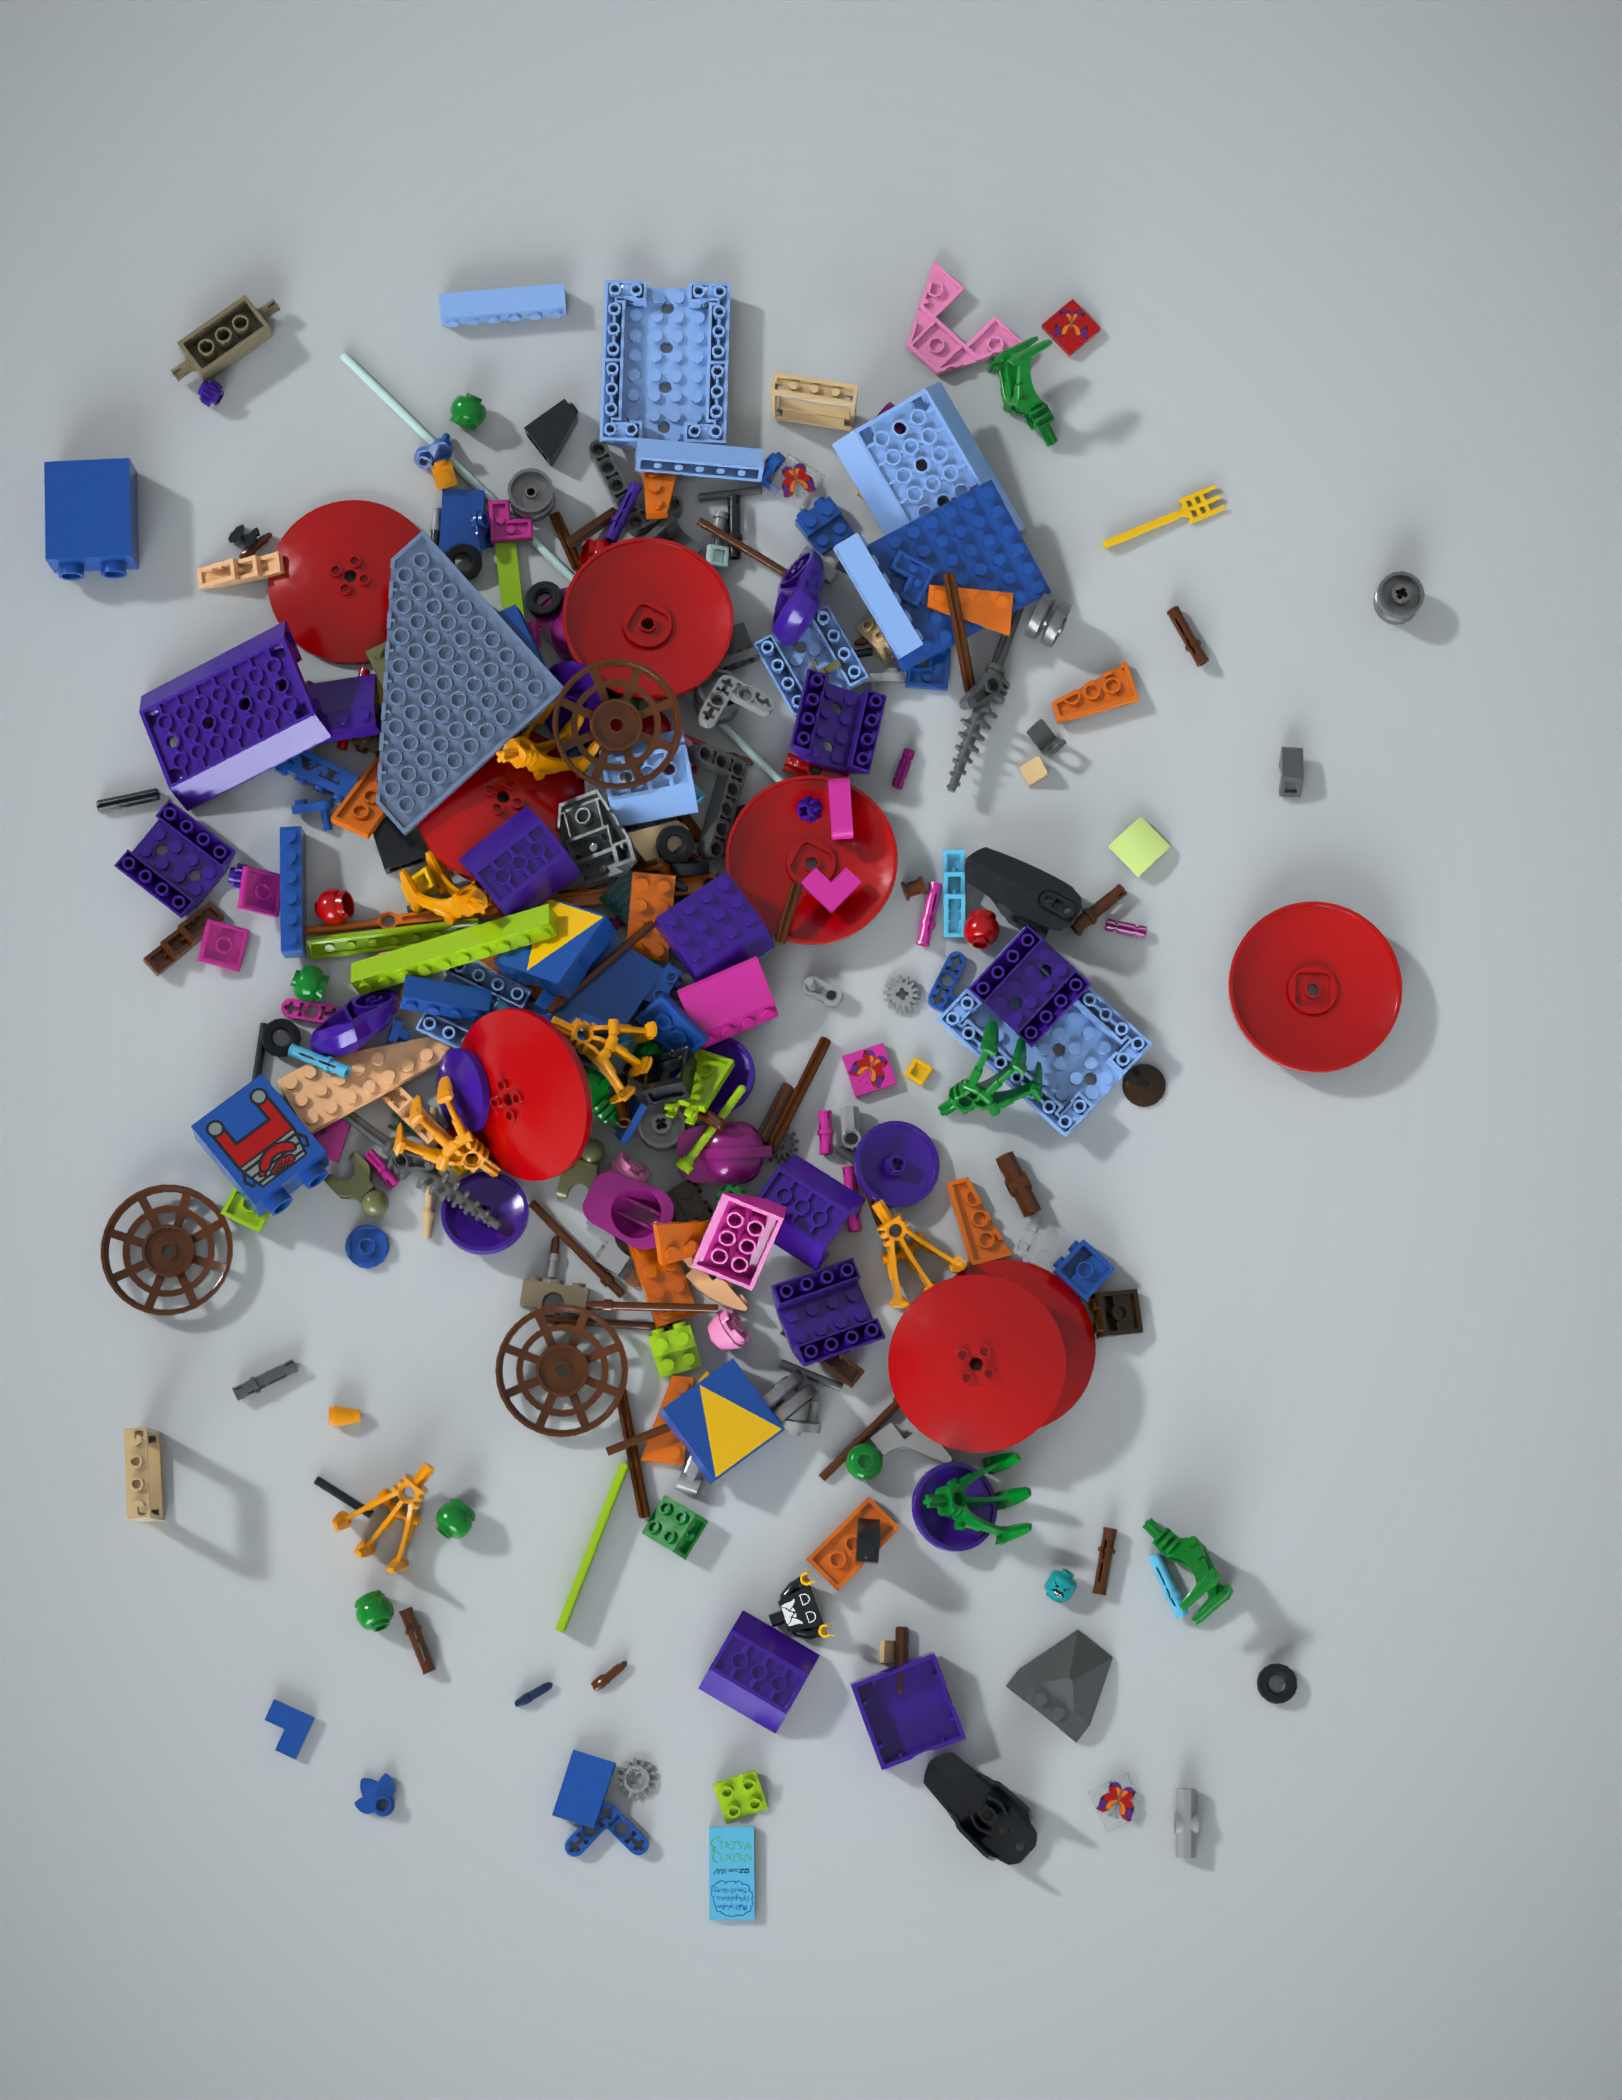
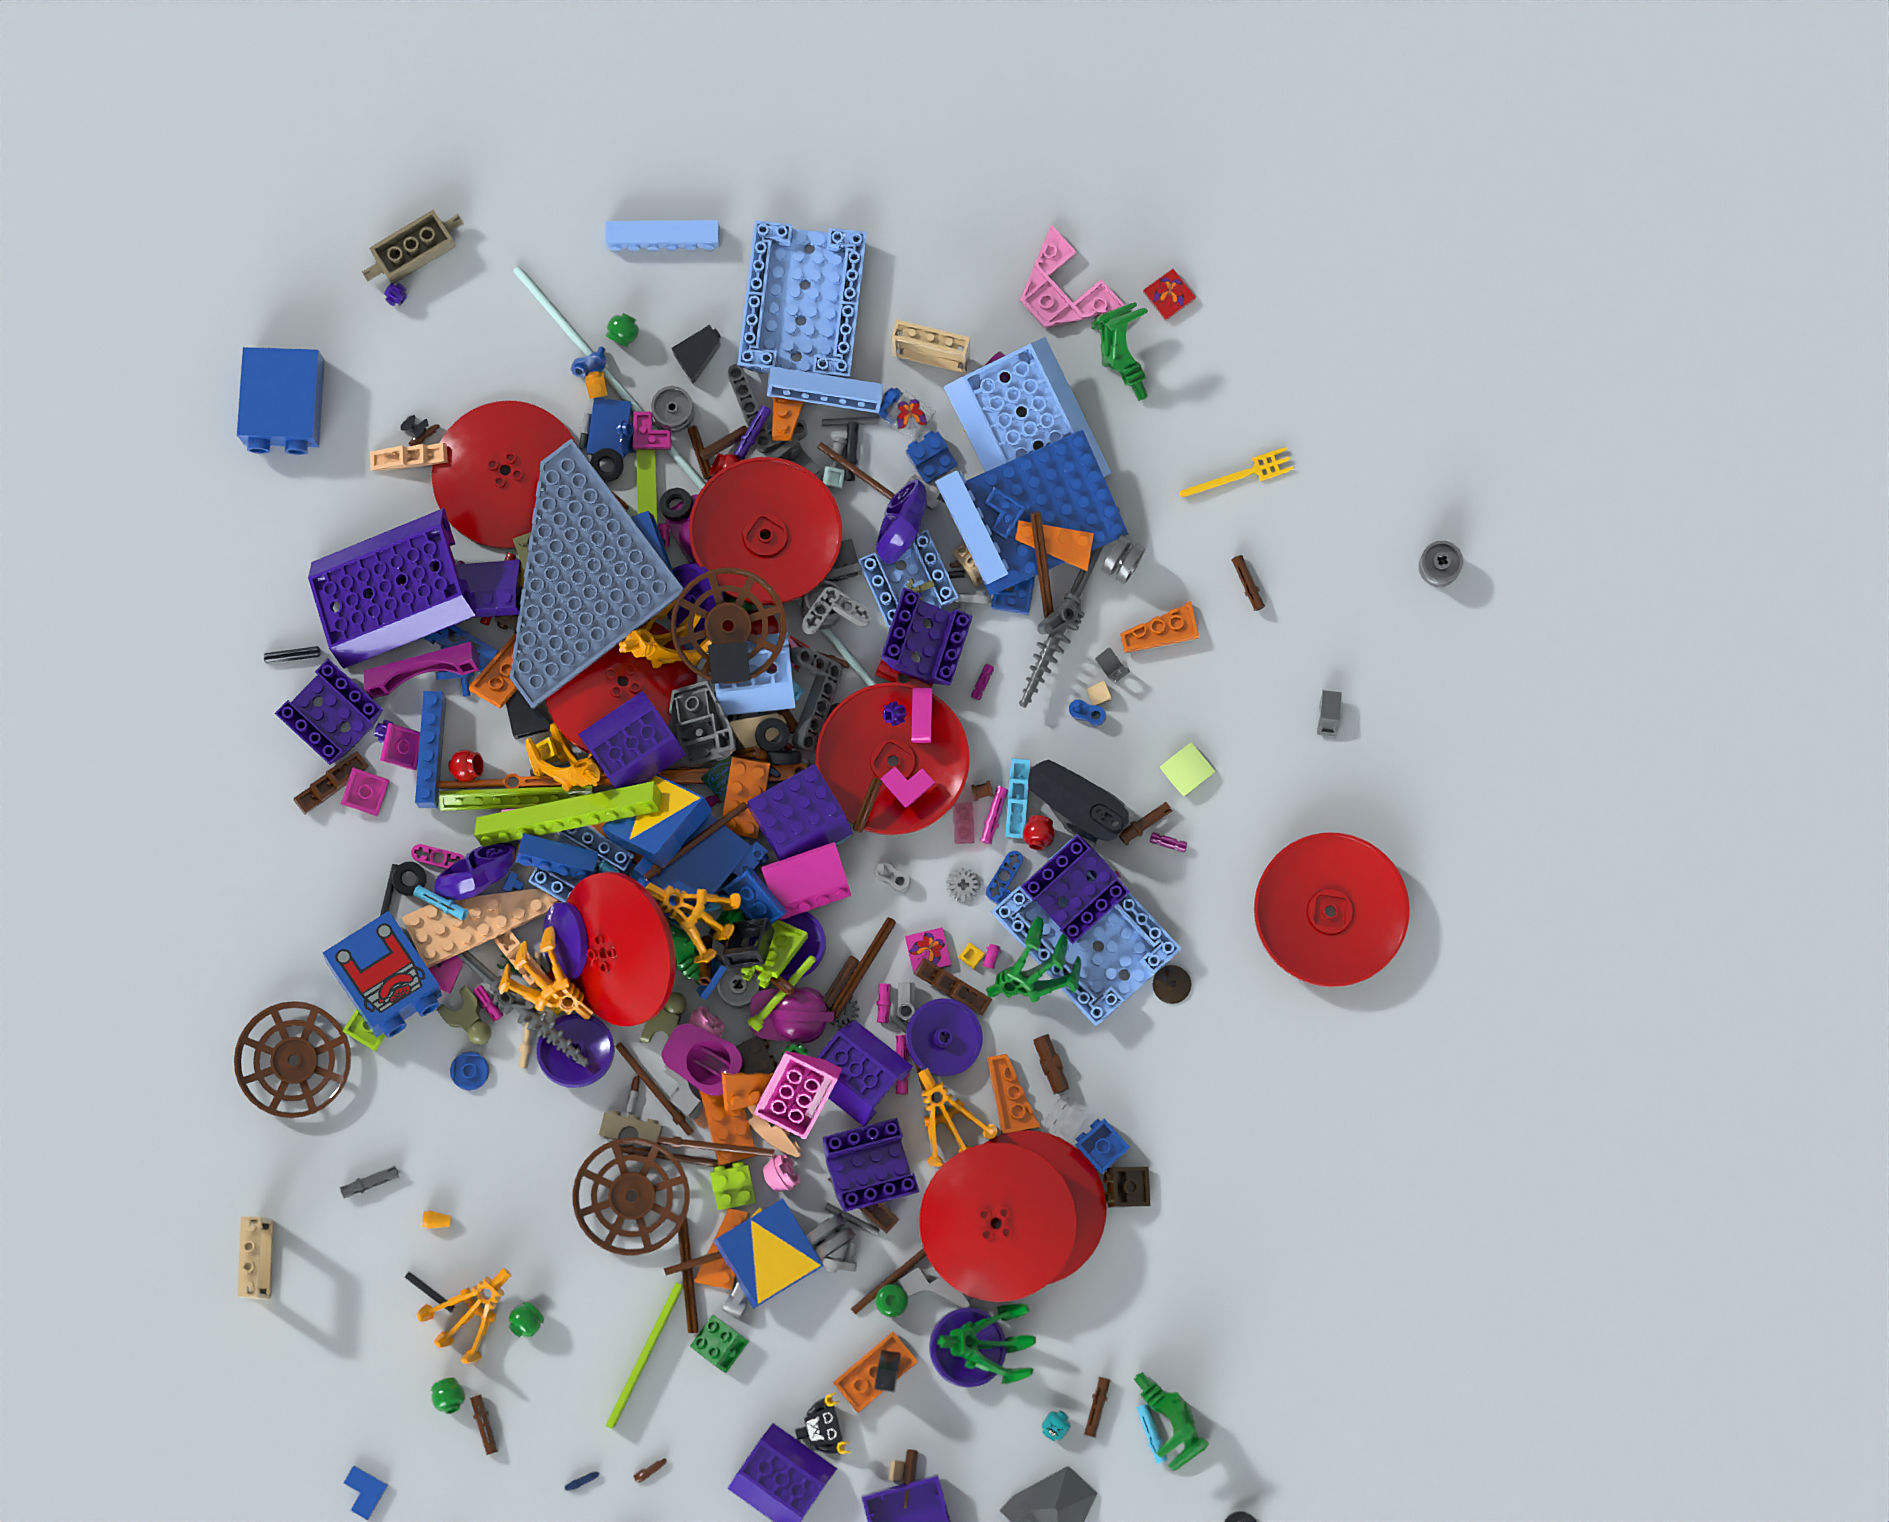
camera: 10 degrees right, 0 degrees up
(235, 818) = (386, 678): none -> magenta arch
(309, 983) = (438, 832): green piece -> none
(621, 765) = (729, 662): none -> black tile
(896, 925) = (963, 823): none -> clear pink slope
(900, 1107) = (952, 986): none -> reddish brown slope
(940, 1070) = (991, 956): none -> dark pink pin
(1019, 792) = (1082, 711): none -> blue piece

